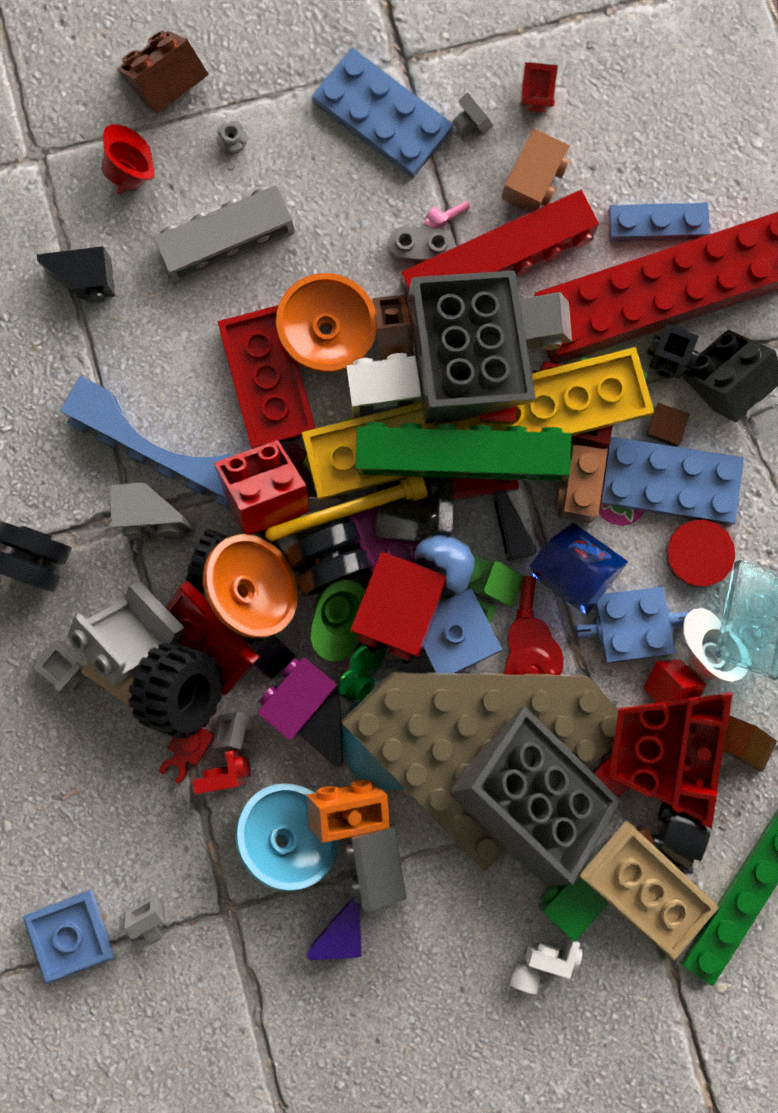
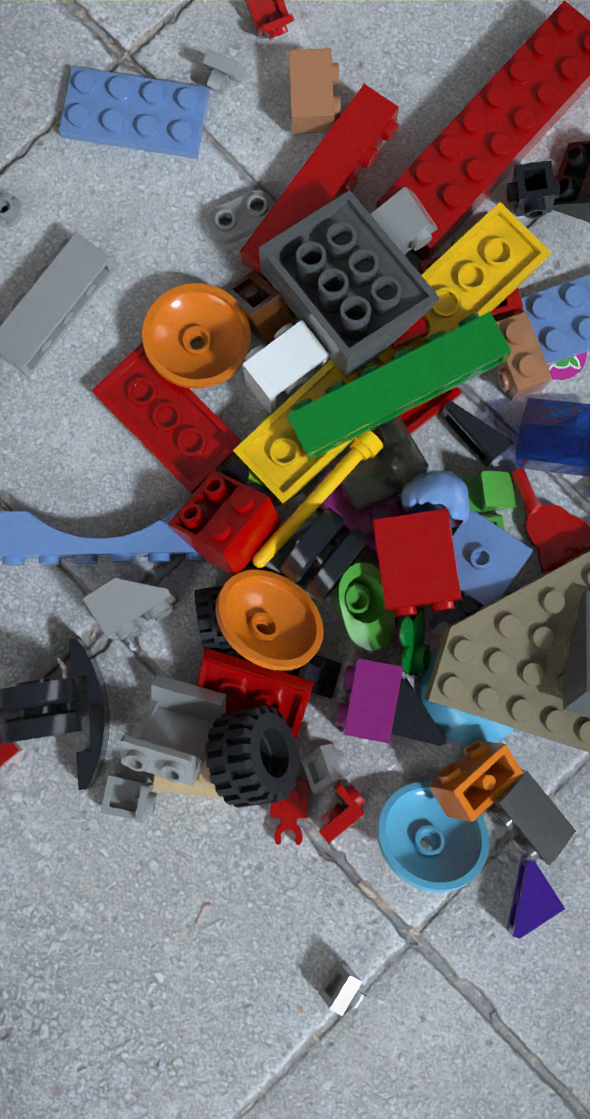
camera: 25 degrees left, 0 degrees up
(47, 621) = (91, 761): none -> black slope
(68, 936) = (278, 1046): medium blue plate -> none
(437, 219) = (244, 184): bright pink hand -> none
(658, 221) = (449, 77): medium blue plate -> none
(667, 424) = (564, 261): reddish brown tile -> none

